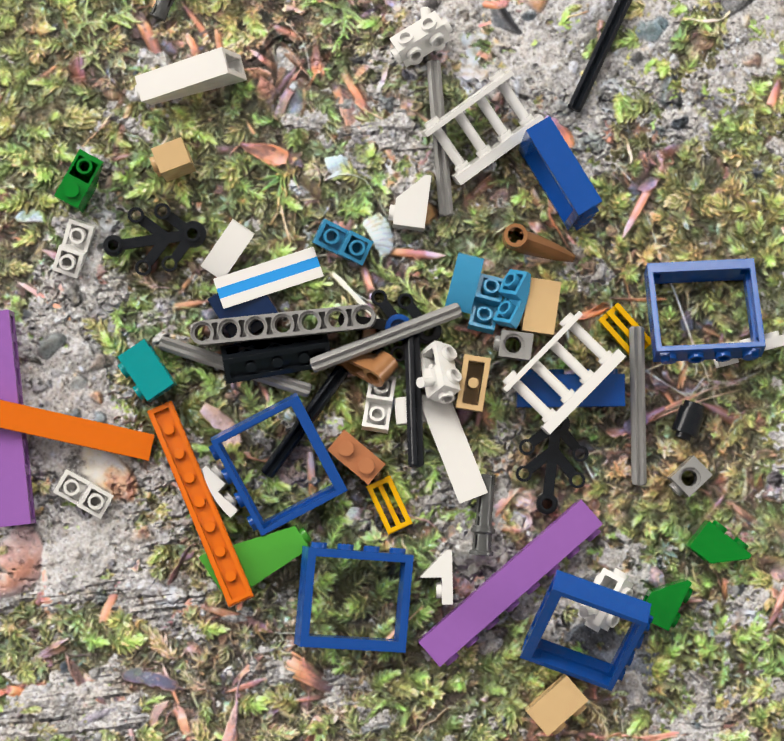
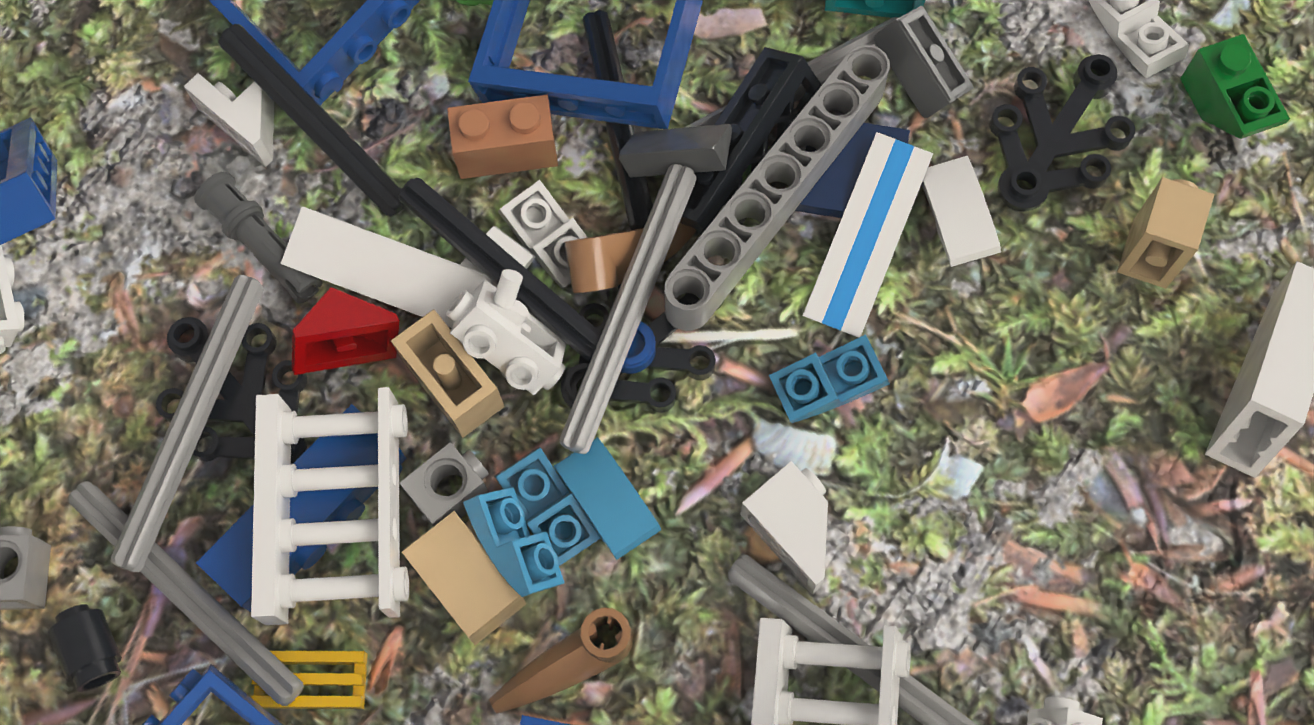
camera: 135 degrees right, 15 degrees down
(171, 318) = (923, 62): none -> dark grey slope
(303, 378) = (695, 147): none -> dark grey slope
(379, 484) = (397, 151): yellow tile -> none
(419, 538) = (312, 119): none -> black axle
(492, 440) = (343, 334): none -> red slope
(510, 582) = (135, 201): medium lavender brick -> none
(577, 463) = (187, 425): none -> light grey axle

